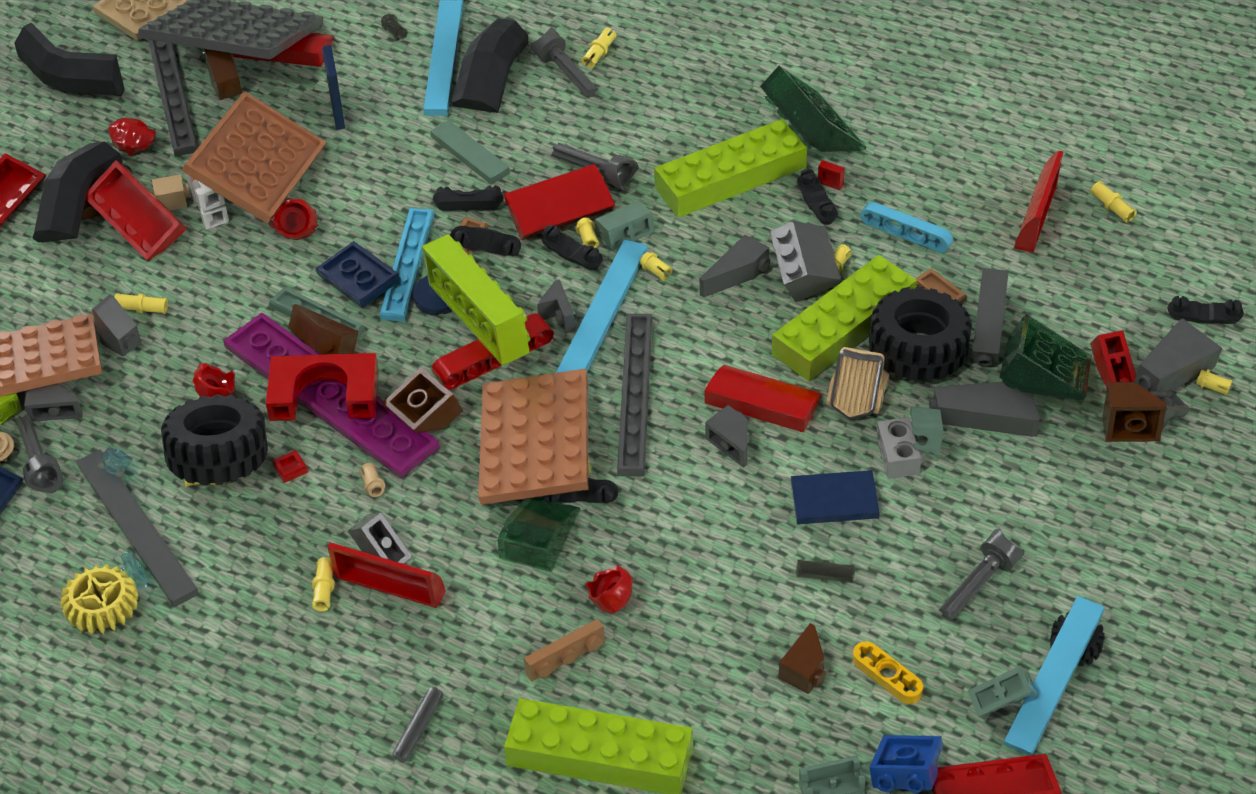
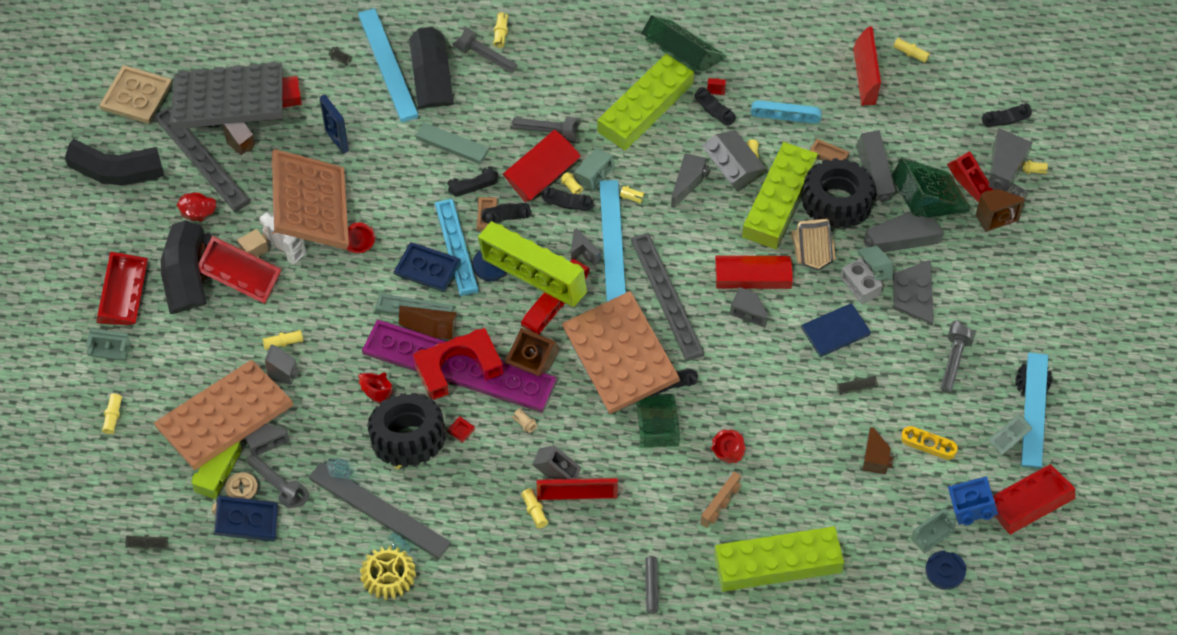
camera: 25 degrees left, 10 degrees up
(966, 483) = (914, 292): none -> dark grey wing

